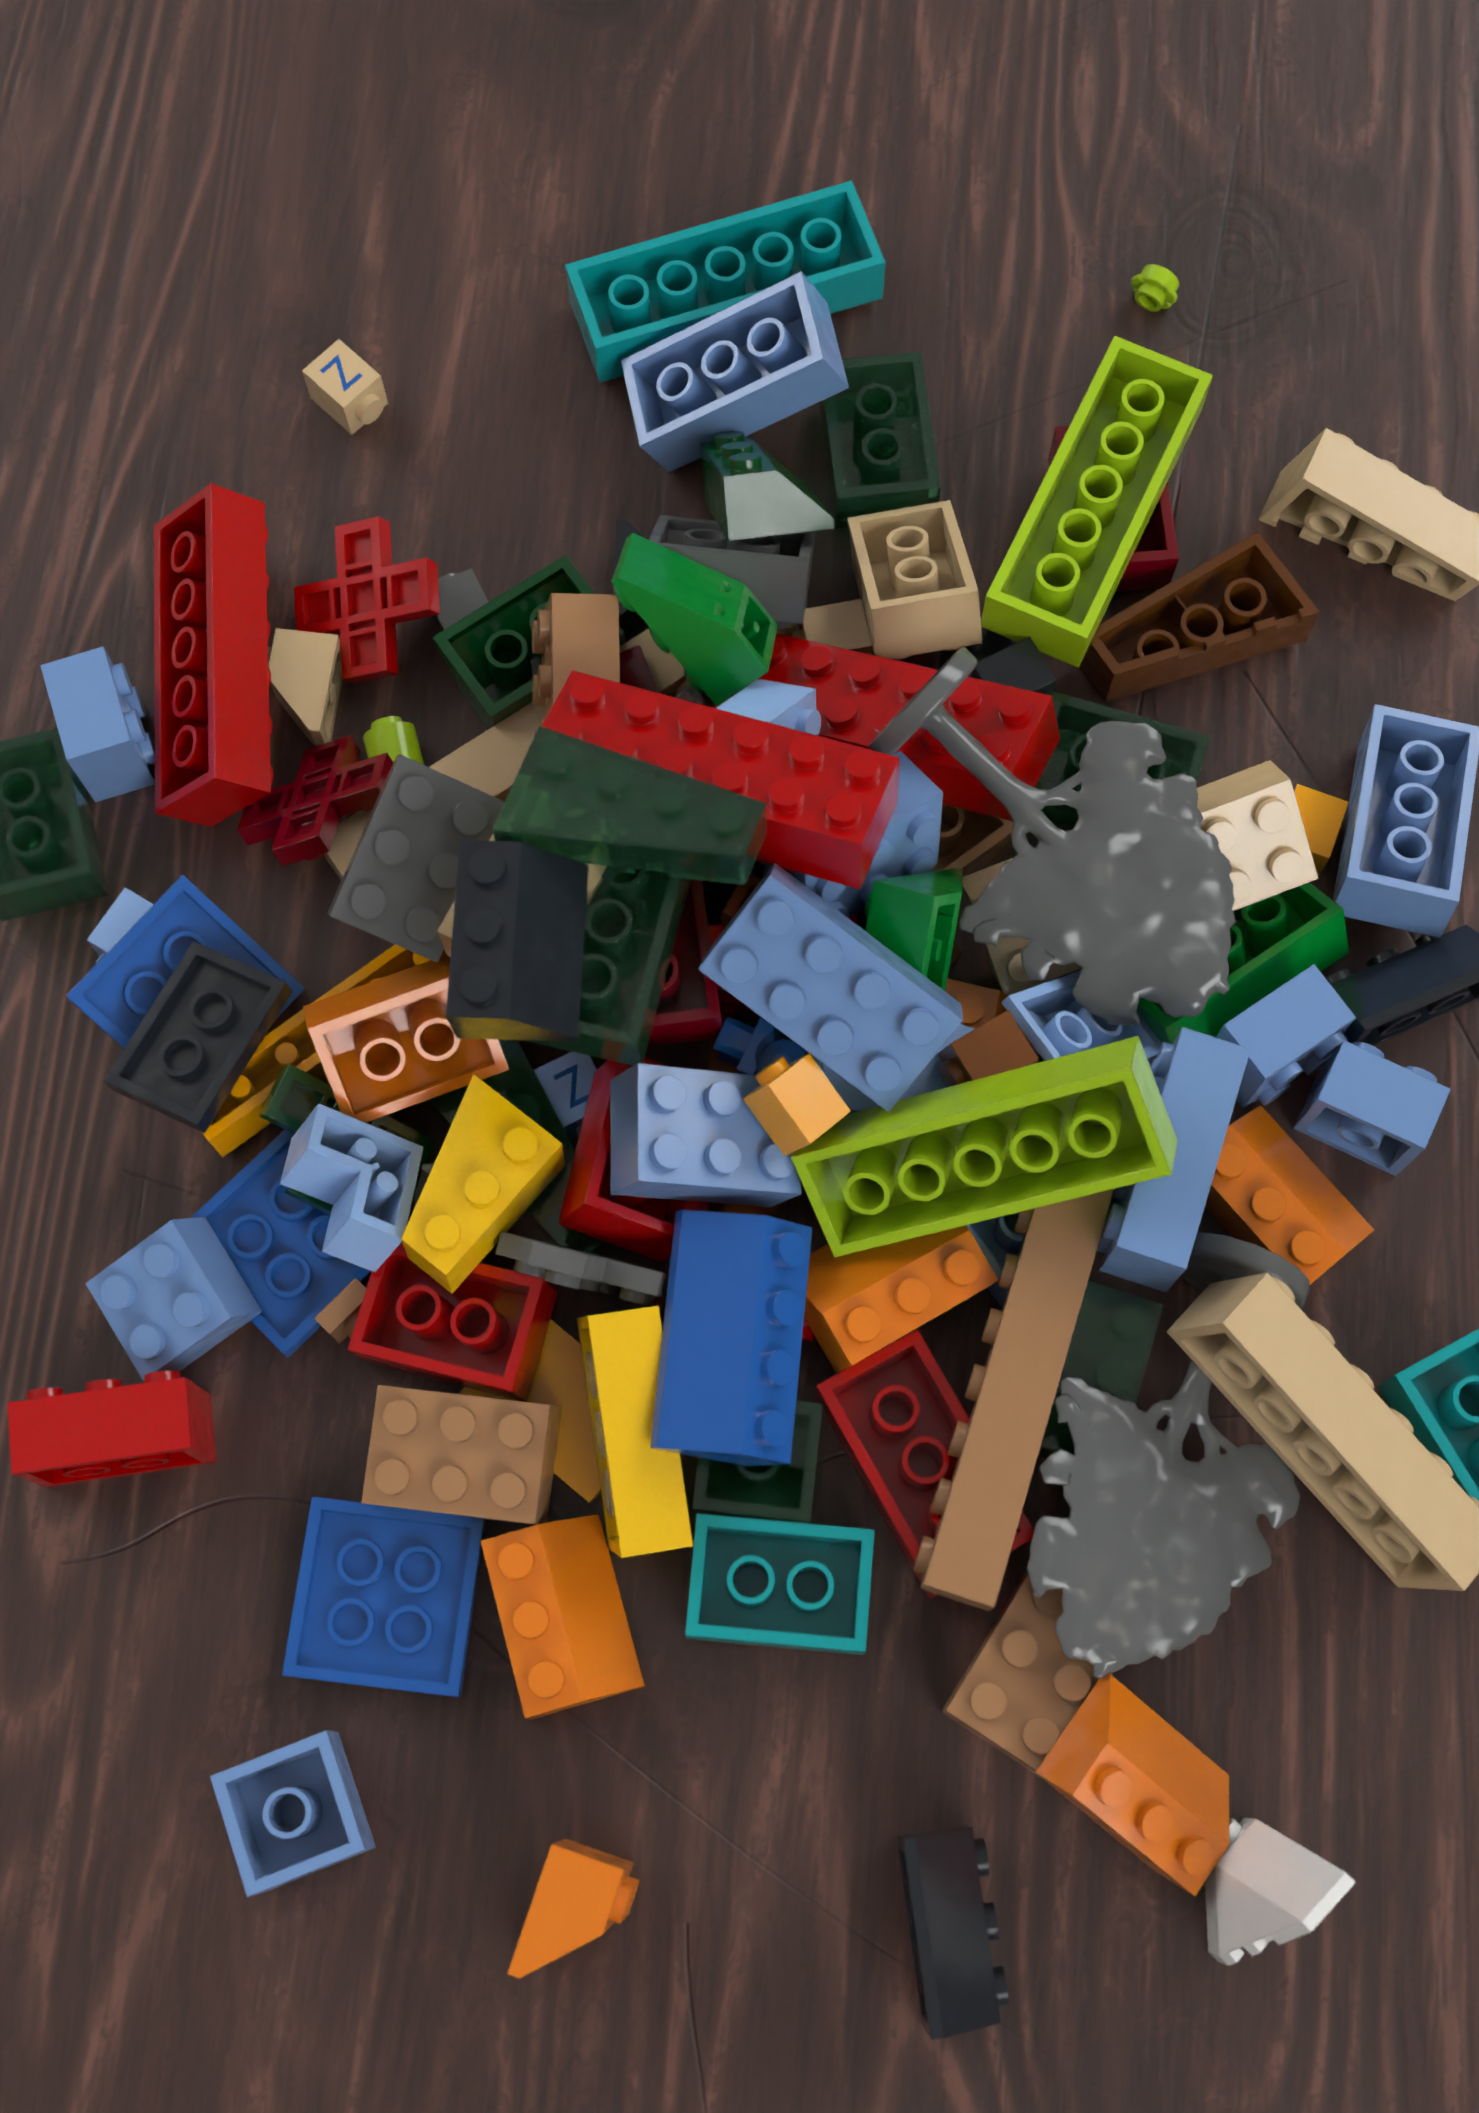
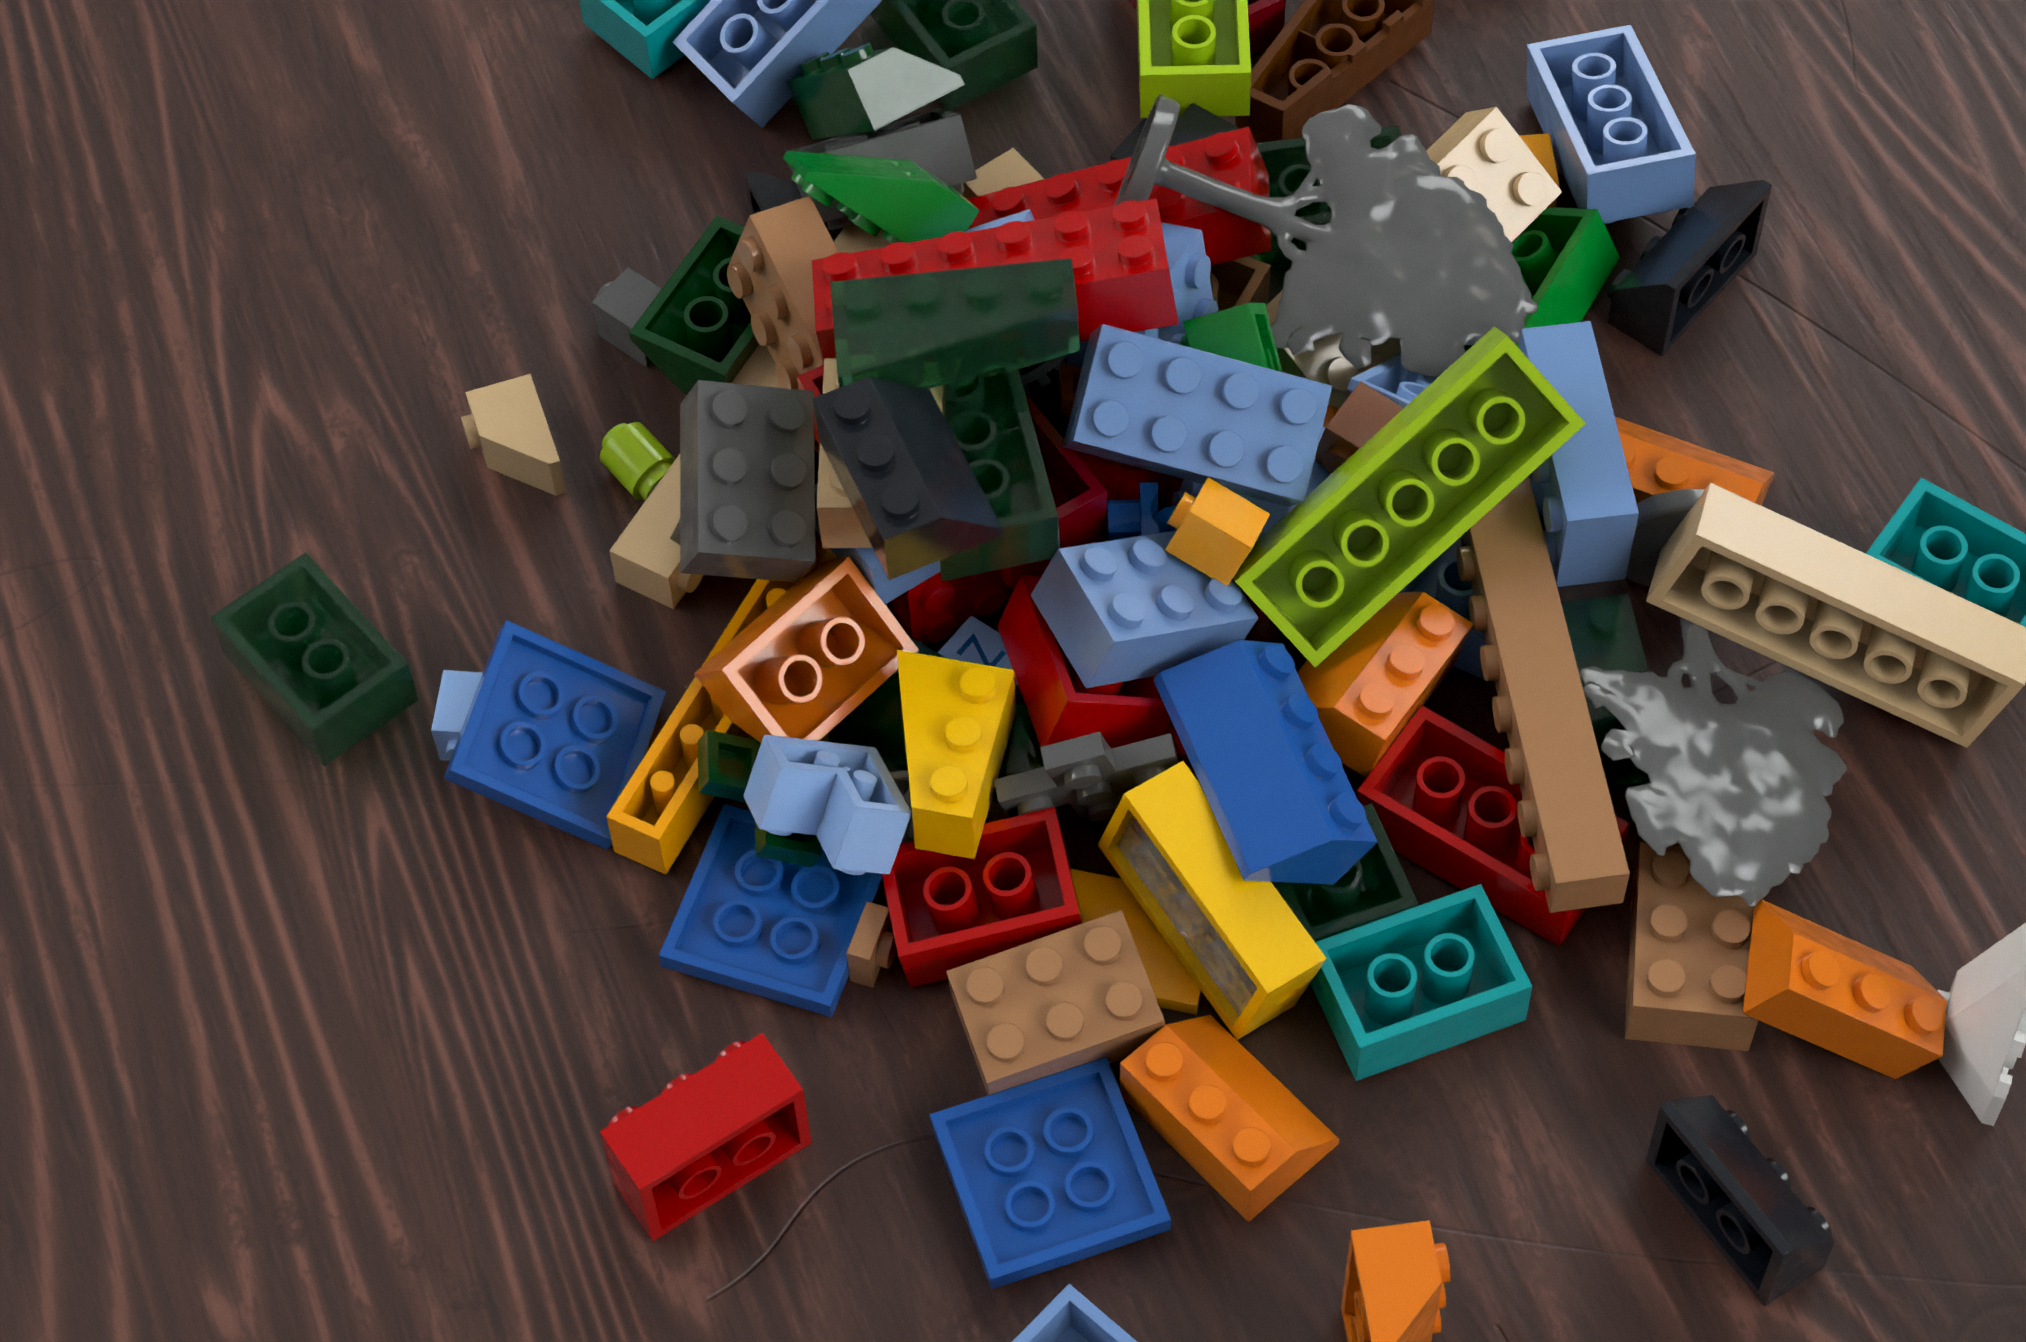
camera: 25 degrees left, 15 degrees down
(100, 723) = (341, 533): medium blue brick -> none
(173, 1296) = (696, 992): medium blue brick -> none
(198, 1036) = (601, 750): black plate -> none
(211, 657) = (417, 441): red brick -> none
(307, 811) = (592, 518): dark red plate -> none
(345, 387) = (409, 173): tan brick -> none
(368, 599) = (542, 333): red plate -> none
(915, 580) = (1056, 108): tan brick -> none
(1287, 1034) = (1623, 323): medium blue brick -> none
(1372, 1107) = (1715, 364): medium blue brick -> none

